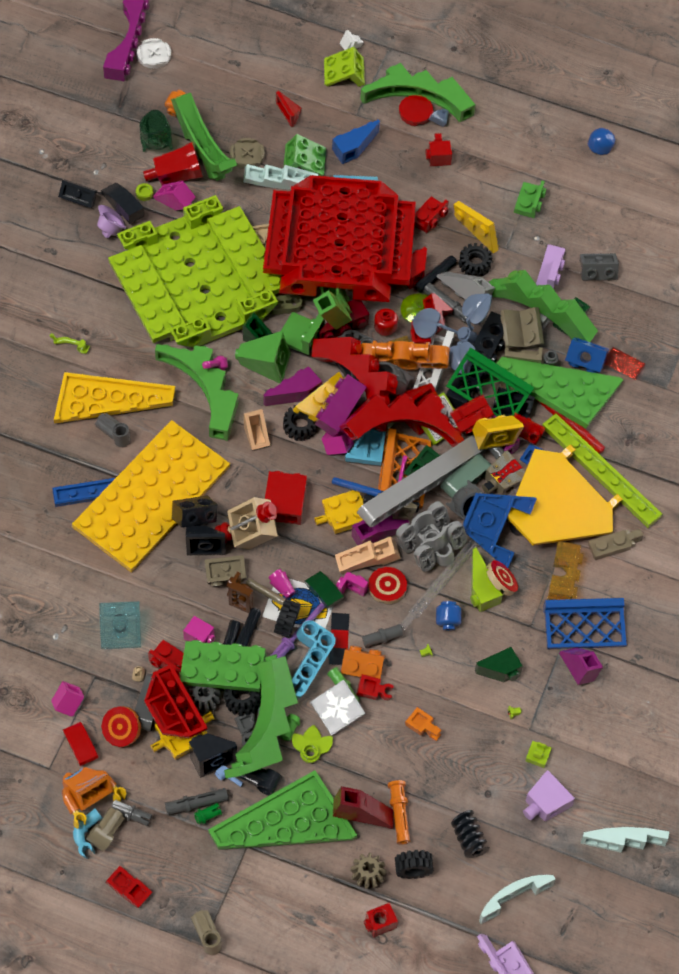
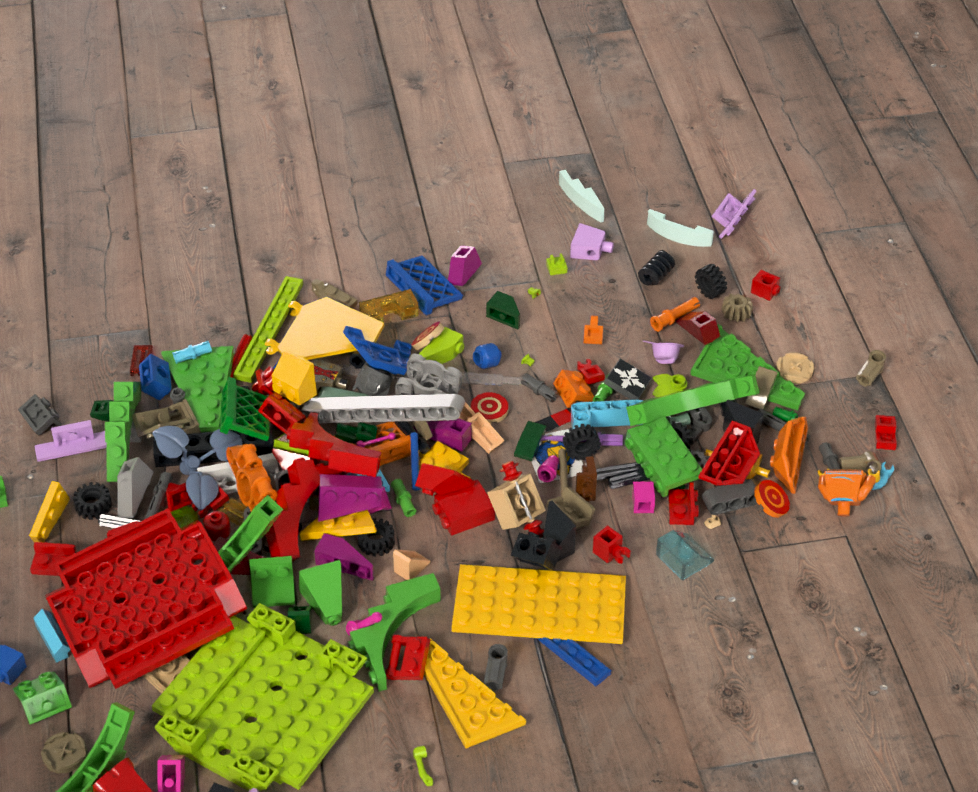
camera: 120 degrees left, 15 degrees down
(67, 699) = (781, 550): dark pink panel -> none
(80, 743) = (808, 522): red slope -> none
(153, 772) = (789, 452): none -> orange wedge
(162, 381) = (413, 660): none -> red plate
(165, 570) = (608, 545): none -> red brick
(247, 808) = (765, 382): none -> dark tan slope
(261, 871) = (795, 367): none -> tan tile
(274, 176) = (83, 702): light aqua slope -> none
(311, 482) = (441, 480): none -> red slope
(328, 463) = (403, 498): none -> bright green pin
(352, 582) = (511, 428): dark pink bracket -> none
(359, 764) = (665, 352): none -> lavender piece
(595, 387) = (192, 352): none -> medium azure pin

